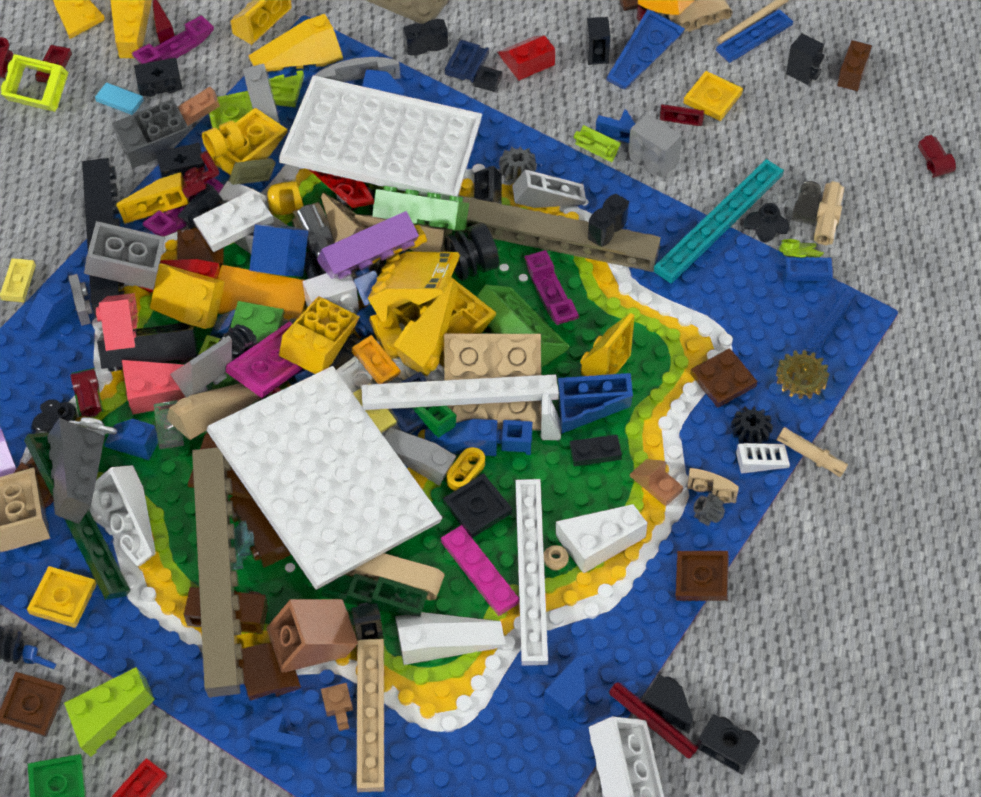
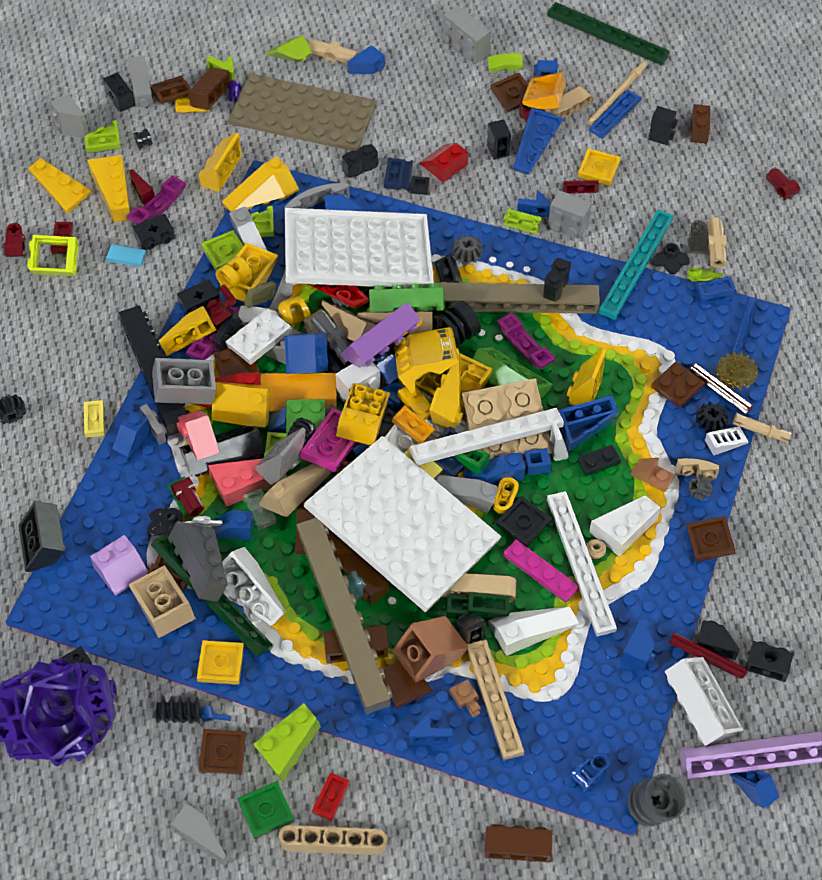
camera: 15 degrees left, 0 degrees up
(150, 132) = (163, 278): dark grey slope -> none
(199, 106) = (189, 256): nougat plate -> none
(546, 191) = (496, 266): light grey slope -> none
(776, 392) = (721, 388): none -> axle

